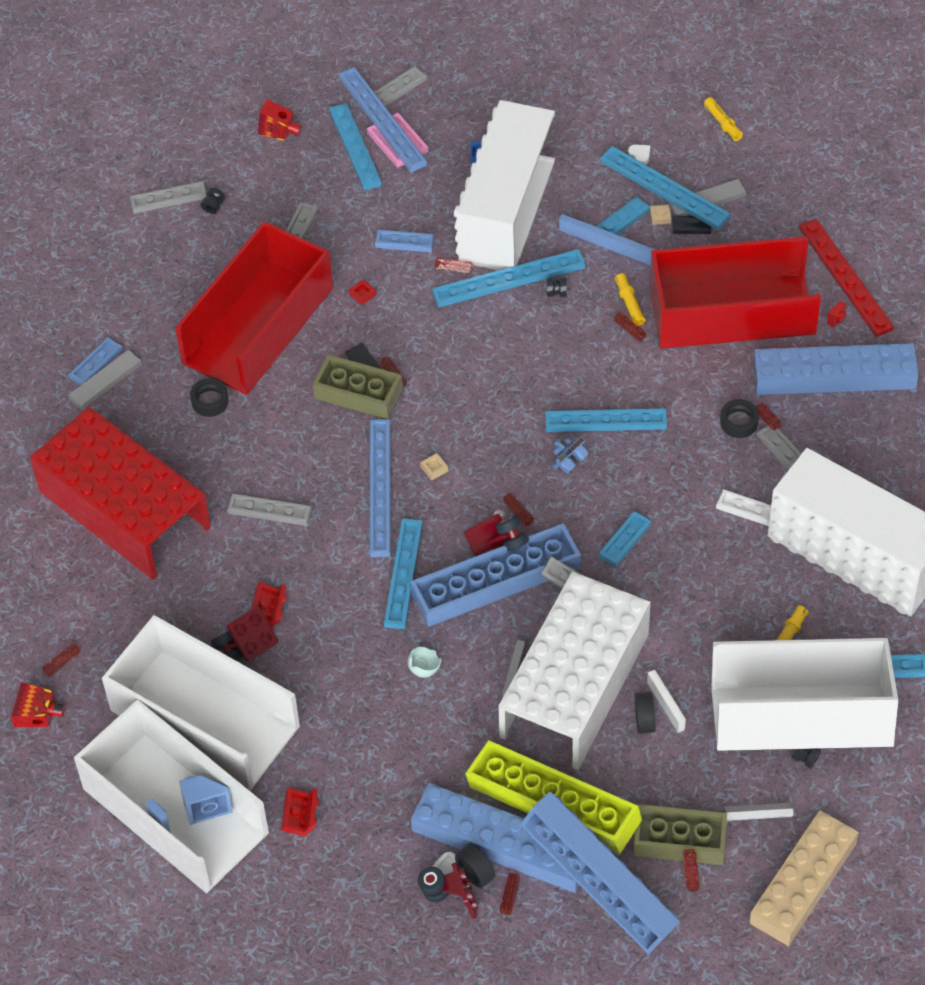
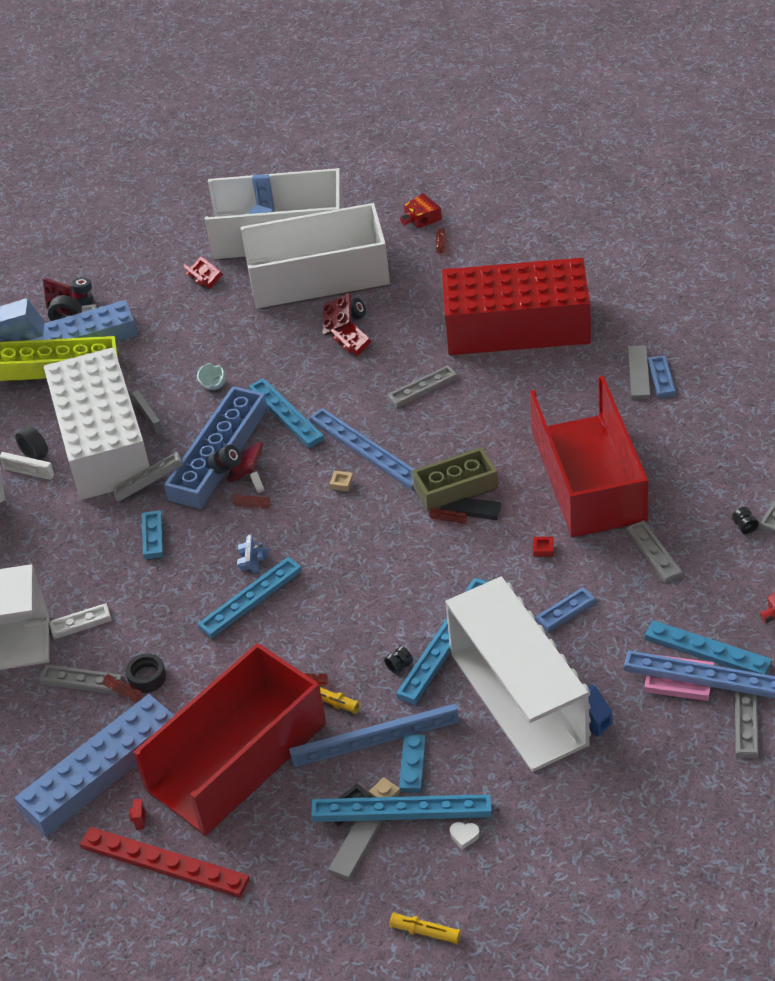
camera: 140 degrees right, 10 degrees down
(211, 409) = (558, 399): black tyre -> none

